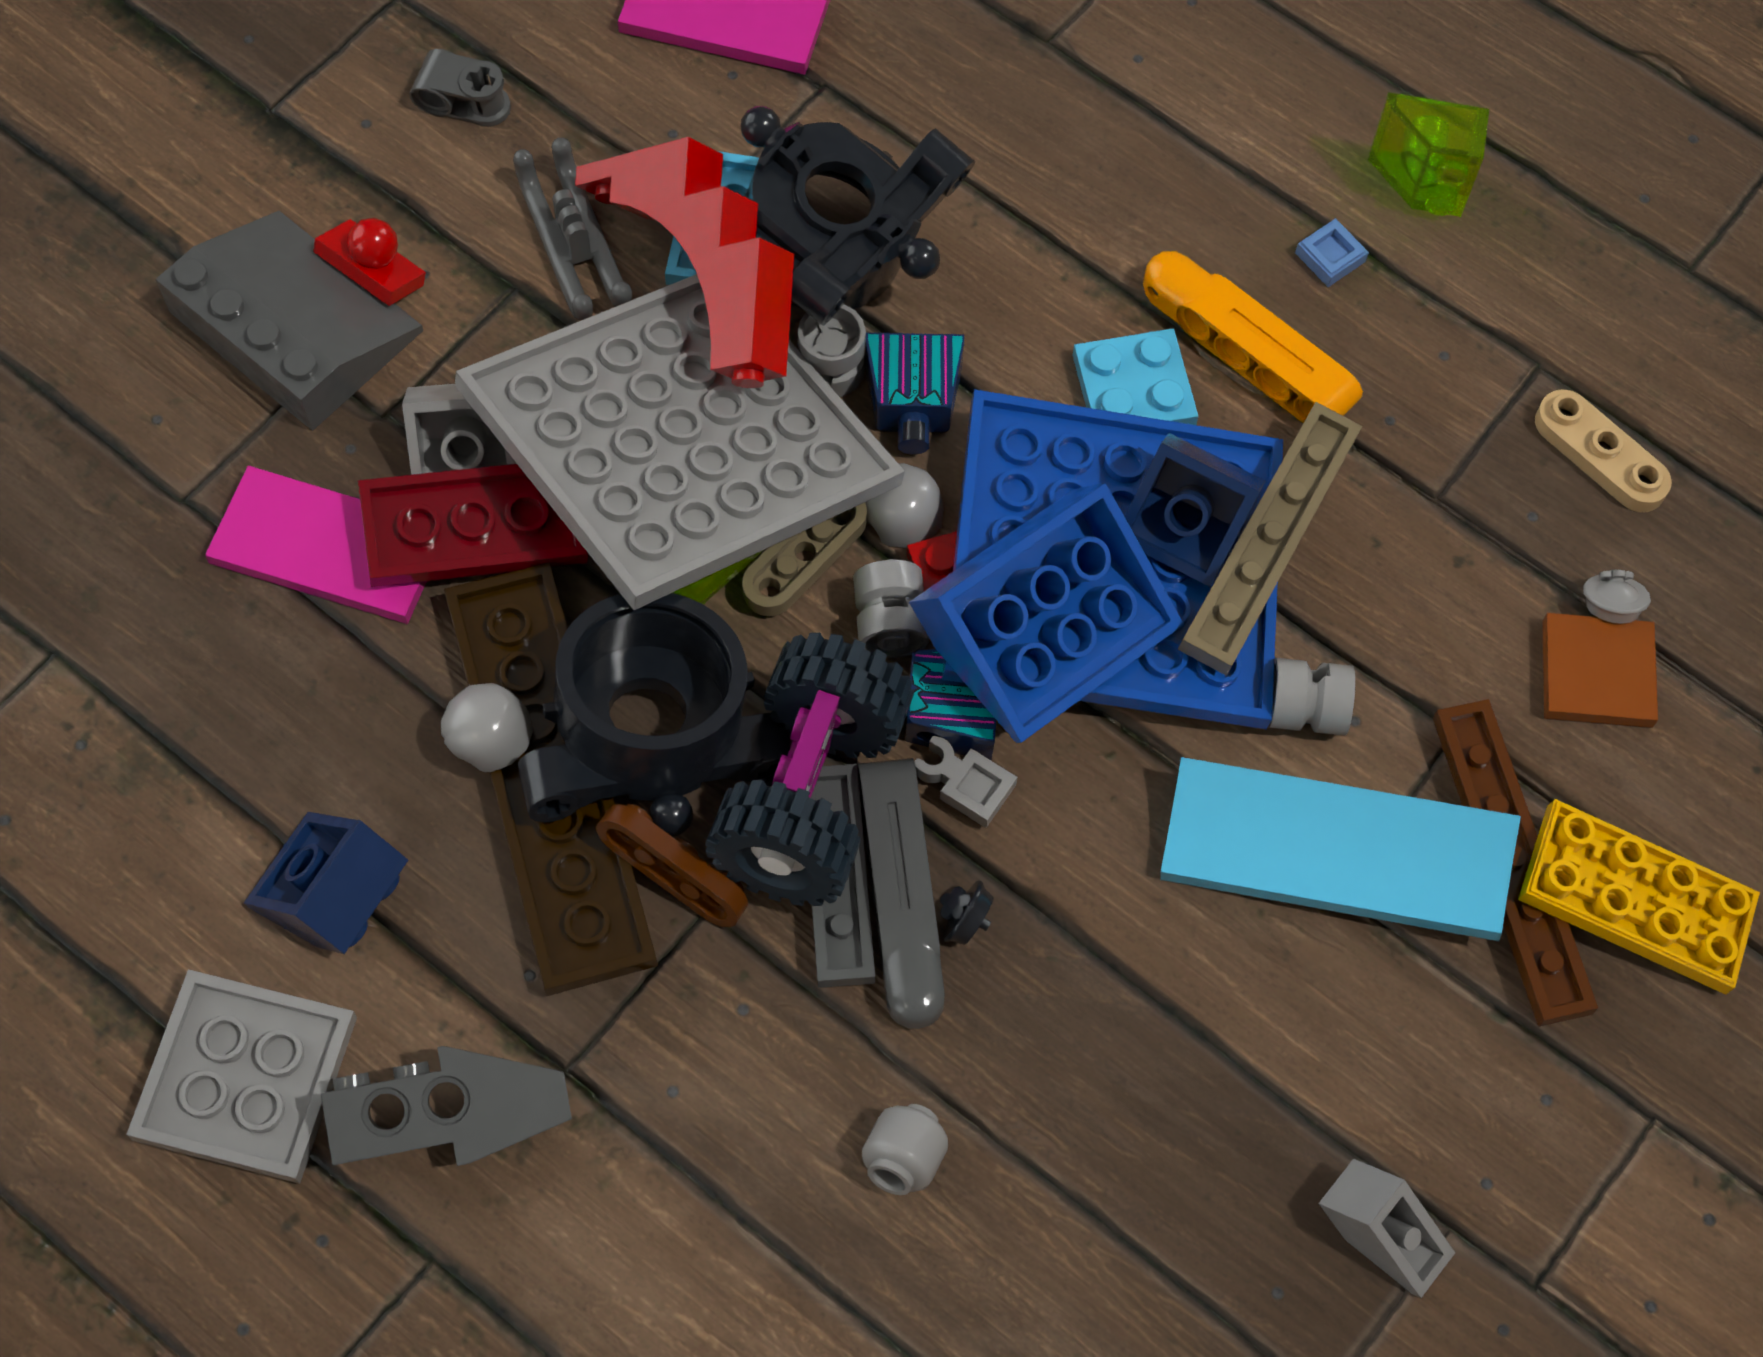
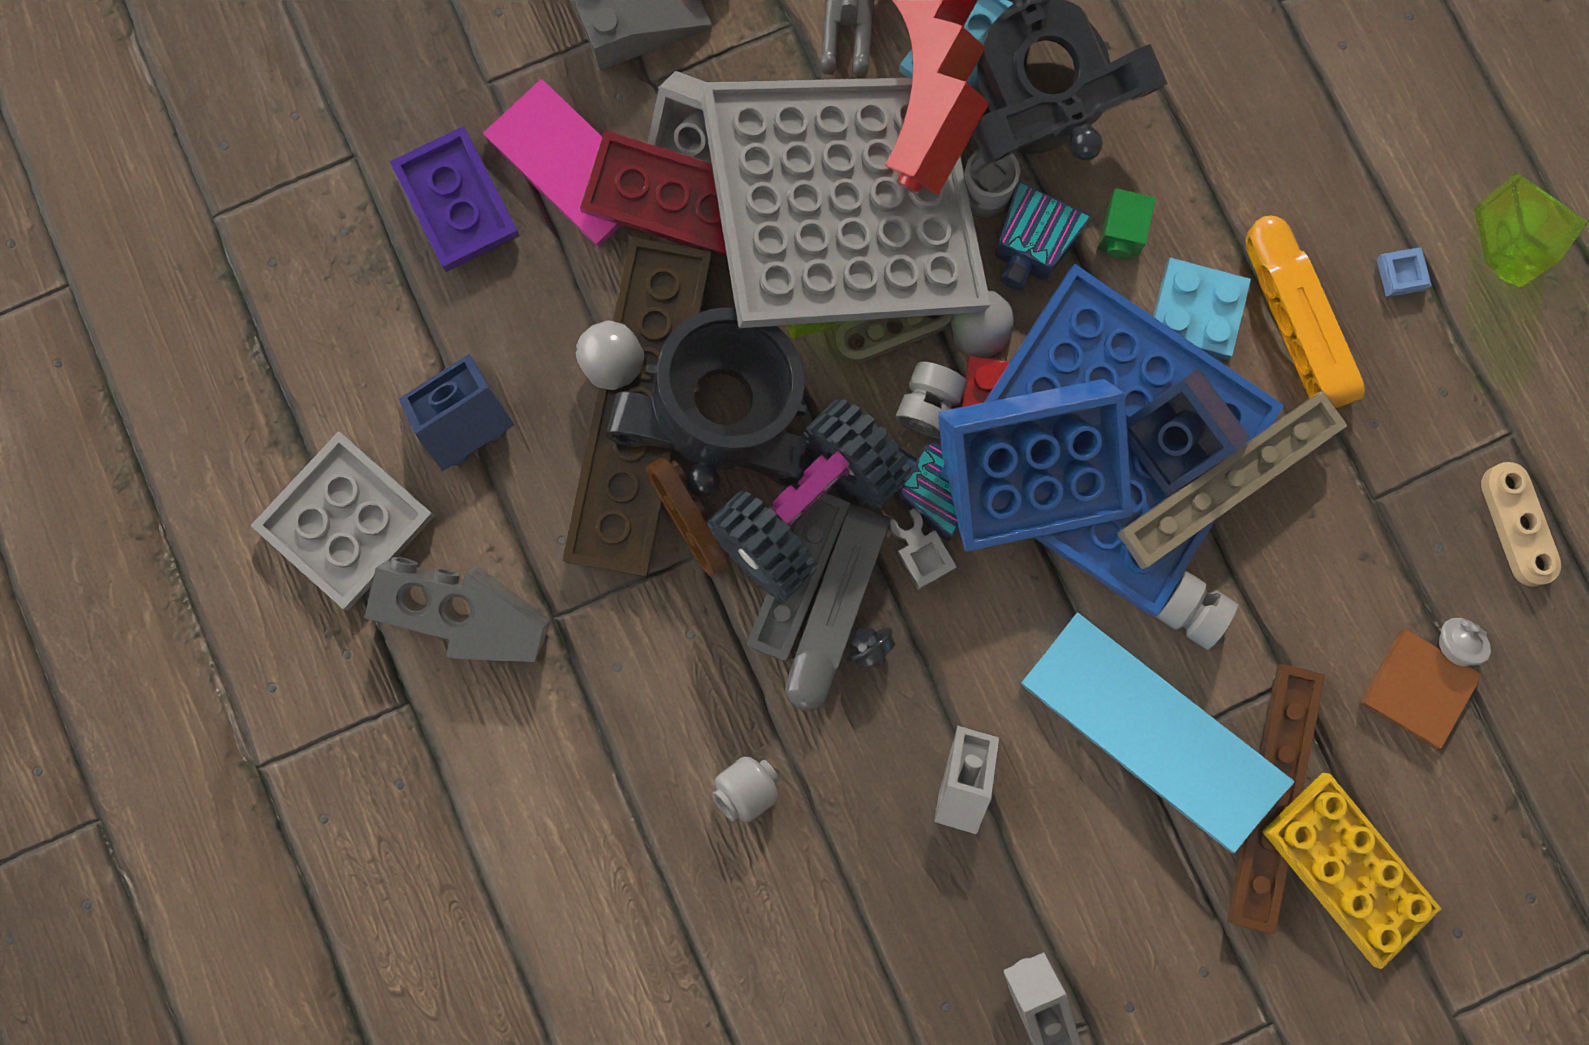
camera: 30 degrees right, 15 degrees up
(206, 642) = (454, 199): none -> dark purple plate
(1006, 330) = (1126, 224): none -> green brick
(1159, 1011) = (967, 780): none -> light grey slope

